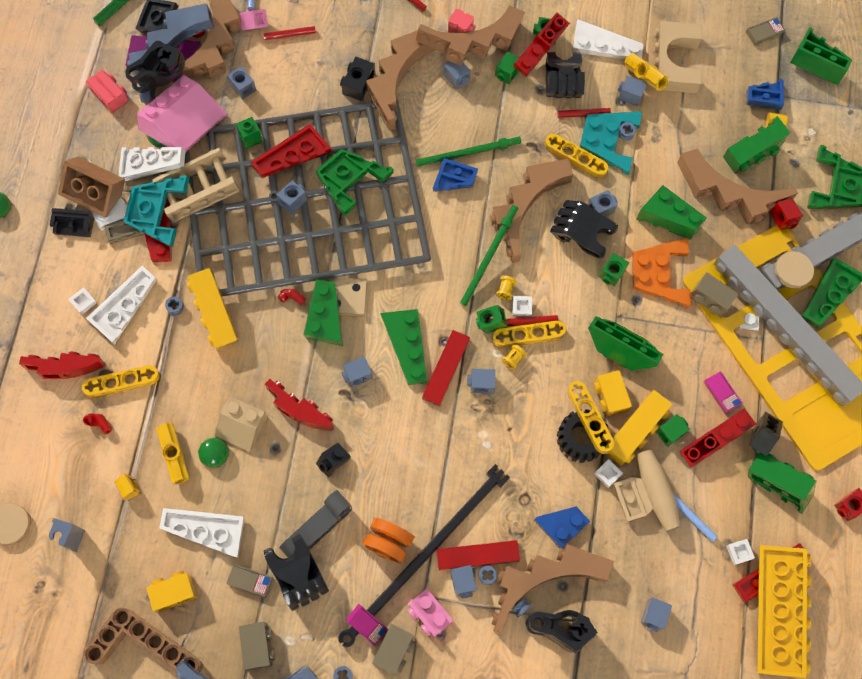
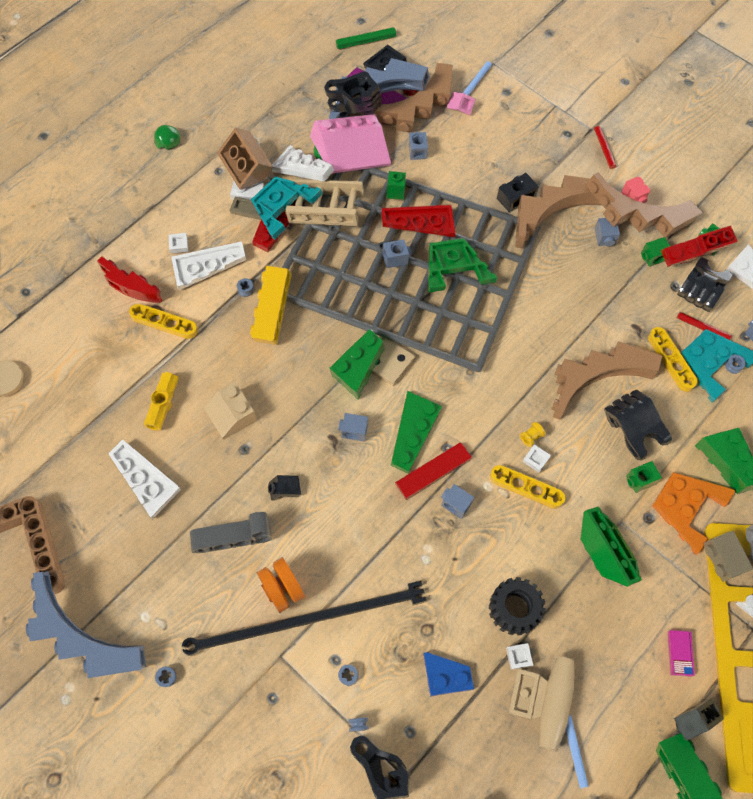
camera: 35 degrees right, 5 degrees down
(70, 533) = (36, 414): sand blue hinge -> none
(71, 222) = (212, 180): black hinge -> none
(97, 420) = (124, 340): red arm -> none
(107, 91) = (309, 98): coral brick -> none
(127, 487) = (108, 405): yellow brick -> none
(171, 592) = (80, 511): yellow brick -> none
(213, 452) = (193, 420): green hair -> none
(249, 580) = (148, 544): dark tan tile -> none
(256, 646) = (114, 601): dark tan brick -> none
(289, 33) = (485, 129): red bar -> none
(291, 294) = (344, 332): red arm -> none
(297, 575) = (187, 563): black piece -> none
(301, 412) = (284, 428): red slope -> none
(366, 624) = (214, 646): dark pink tile -> none
(393, 650) = (221, 684): dark tan brick -> none
(430, 613) = (275, 674): bright pink bracket -> none
(454, 176) = (548, 315): blue wing -> none
(463, 581) = (322, 665): sand blue brick -> none
(478, 555) = (352, 651): red tile -> none
(498, 322) = (506, 457): green brick -> none
(502, 143) = (609, 311): green bar -> none
(506, 223) = (566, 378): green bar -> none
(514, 357) = (499, 498): yellow bush -> none
(531, 320) = (533, 474): red bar -> none
(572, 563) = (431, 716): medium nougat arch -> none
(587, 418) = (530, 592): yellow beam -> none
(606, 198) = (675, 409): sand blue brick -> none
(612, 393) = (570, 586): yellow brick -> none
(638, 426) = (574, 632): yellow brick -> none
(672, 430) = (607, 656): green brick -> none
(717, 438) = (647, 692): red slope -> none

